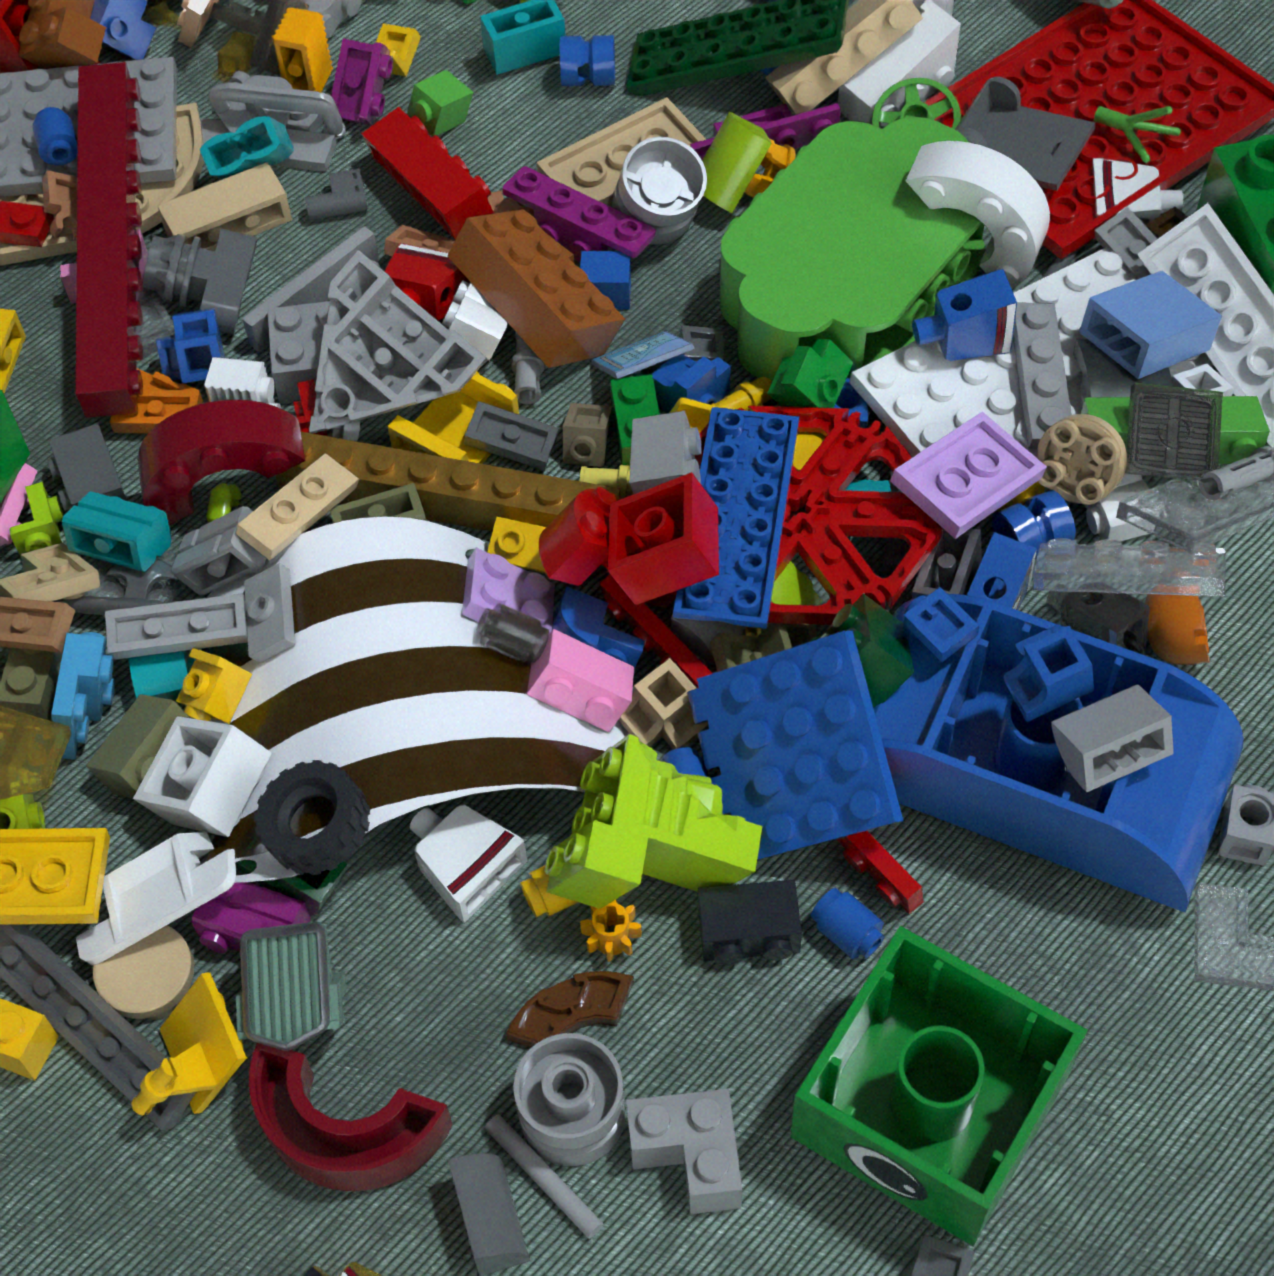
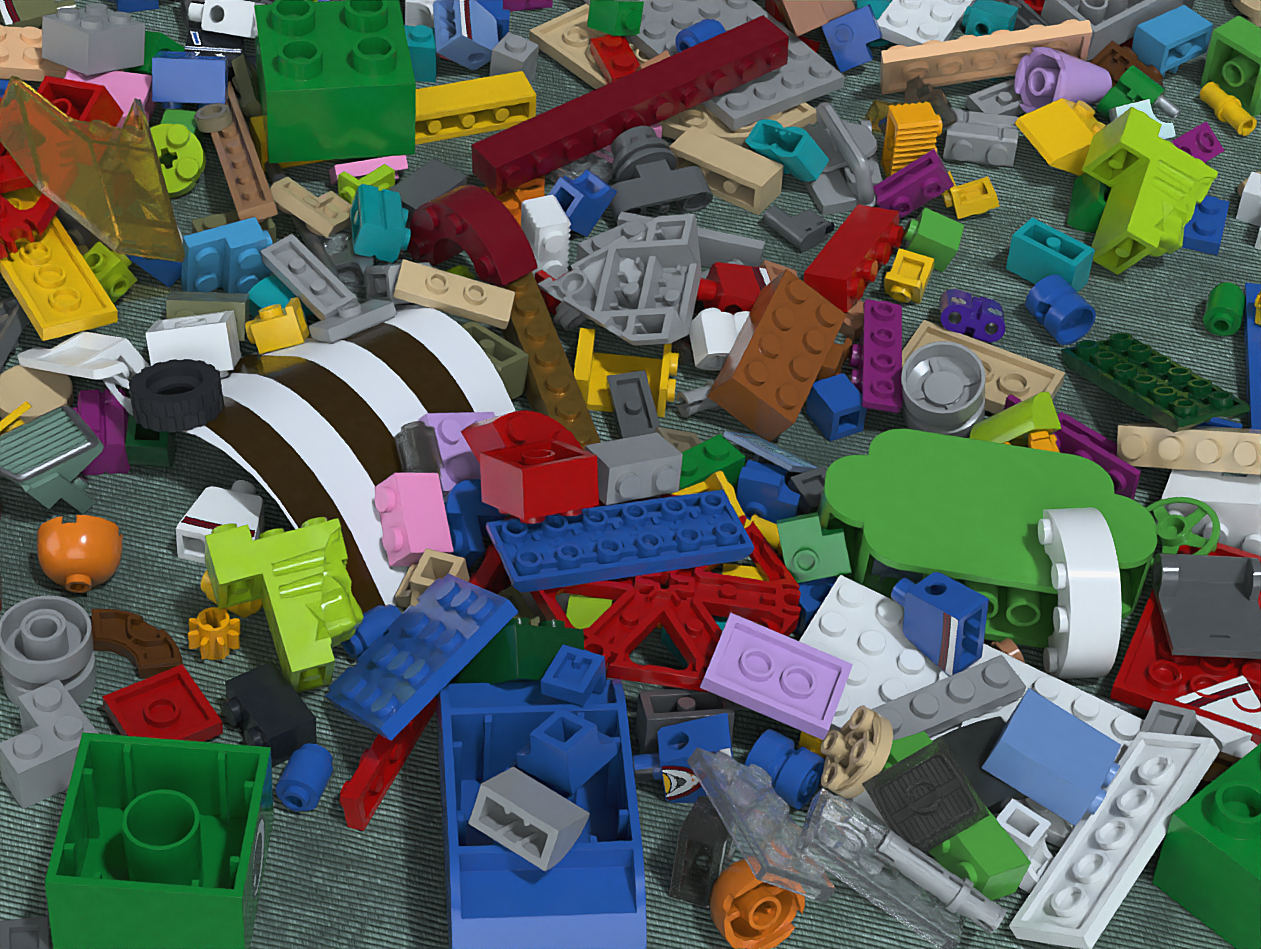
camera: 55 degrees right, 15 degrees down
(438, 1014) = (79, 552): none -> orange cylinder
(470, 144) = (908, 276): none -> yellow bracket
(552, 124) = (972, 315): none -> dark purple piece
(695, 1022) = (164, 708): none -> red plate

